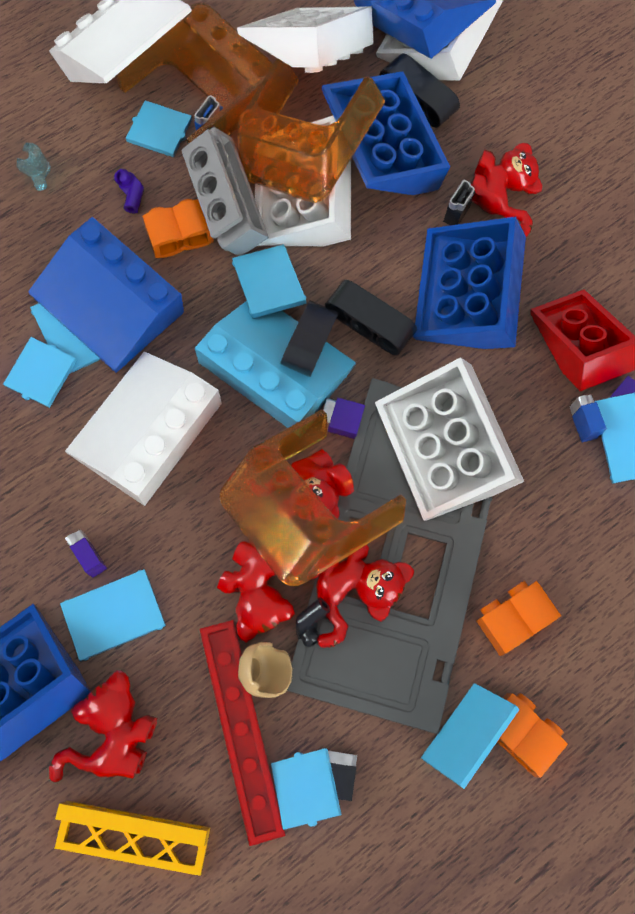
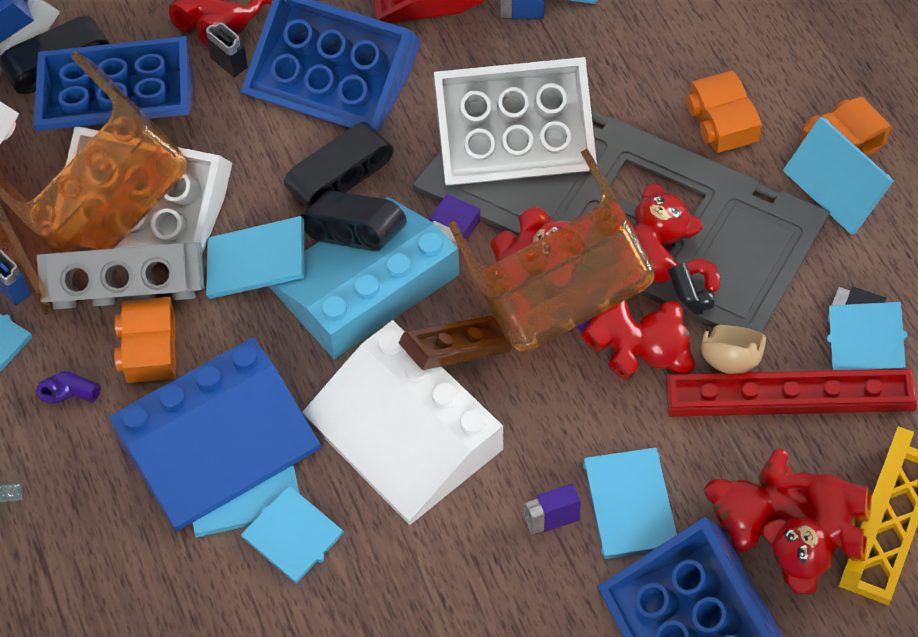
camera: 70 degrees left, 15 degrees down
(69, 769) = (807, 545): none -> red animal
(207, 438) = (455, 342): none -> reddish brown tile

